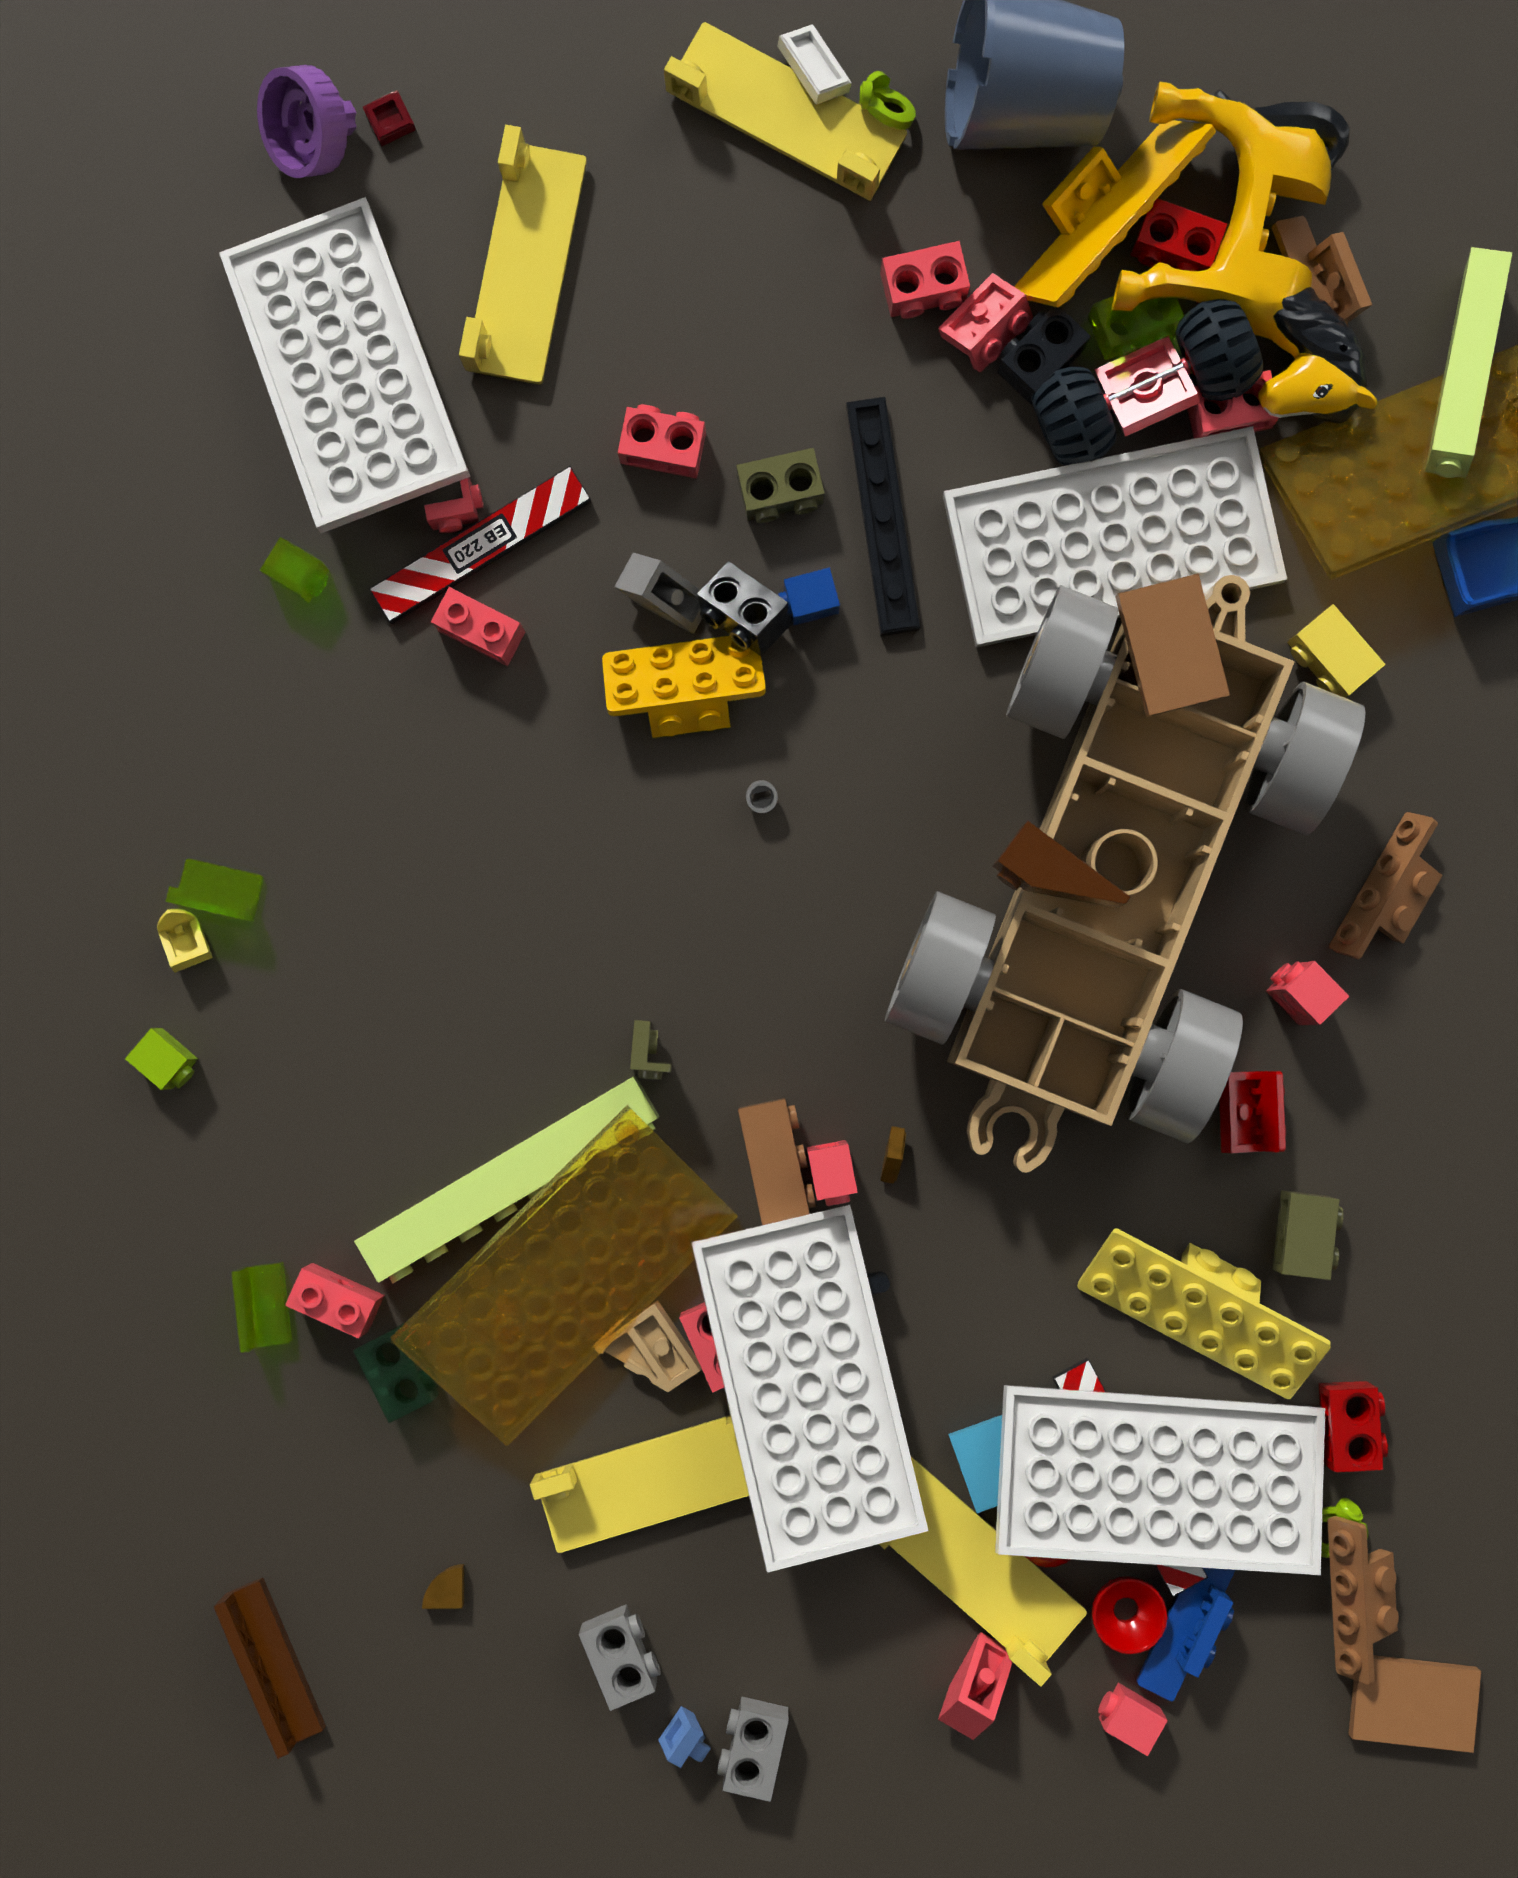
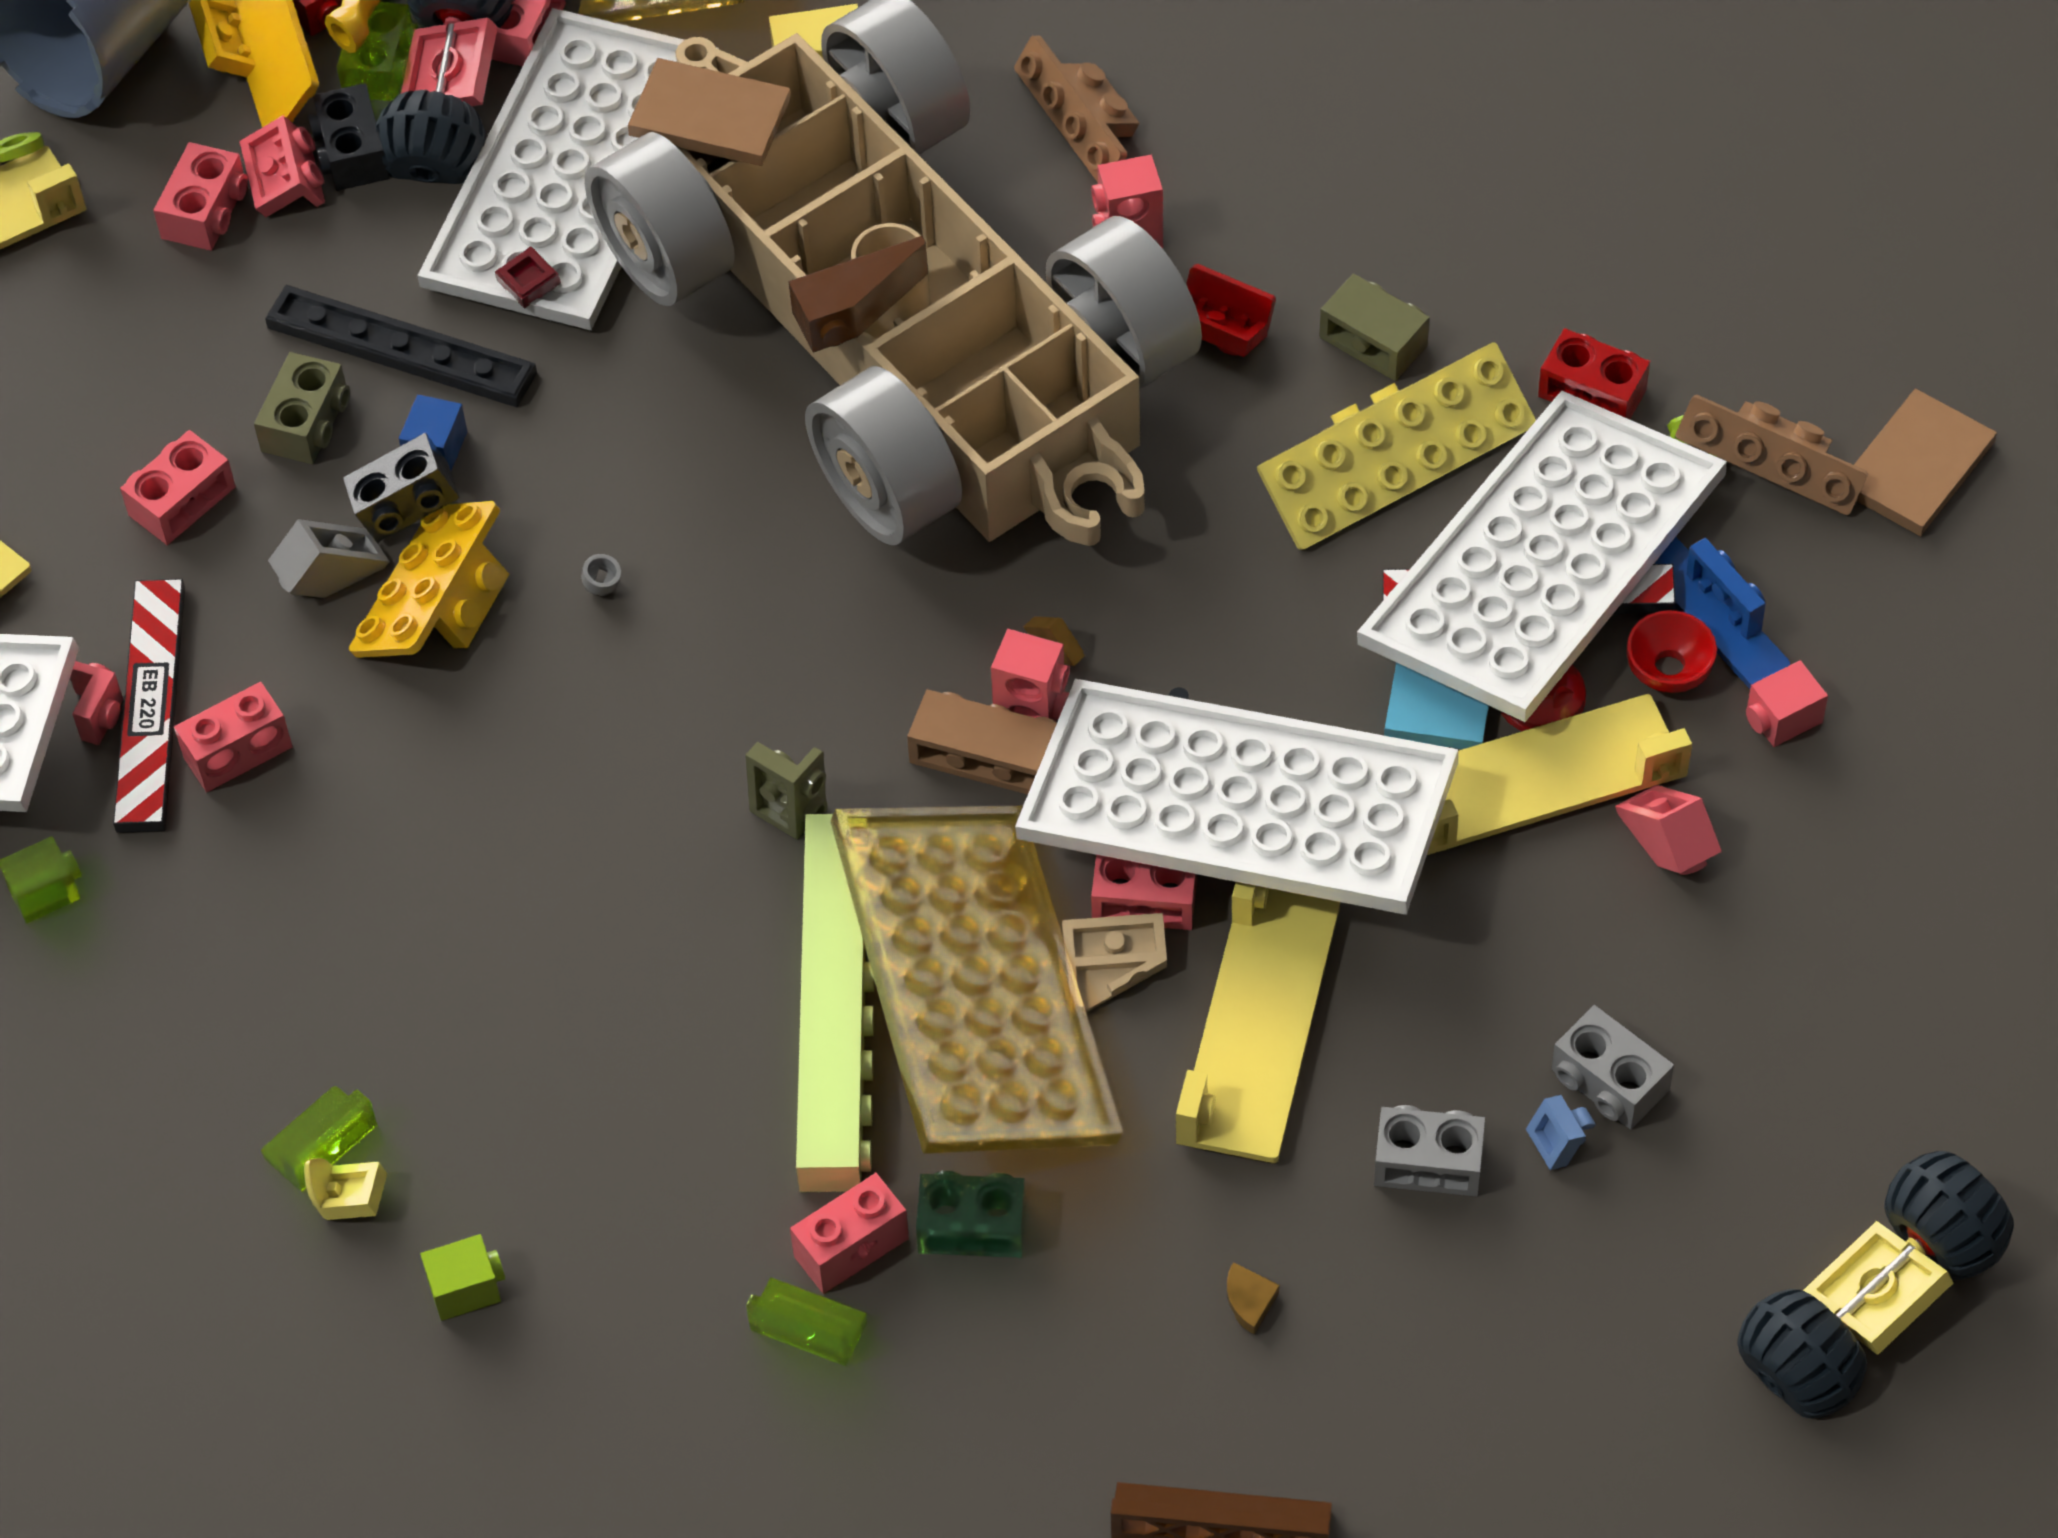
camera: 65 degrees left, 30 degrees down
(985, 576) = (527, 277): none -> dark red tile

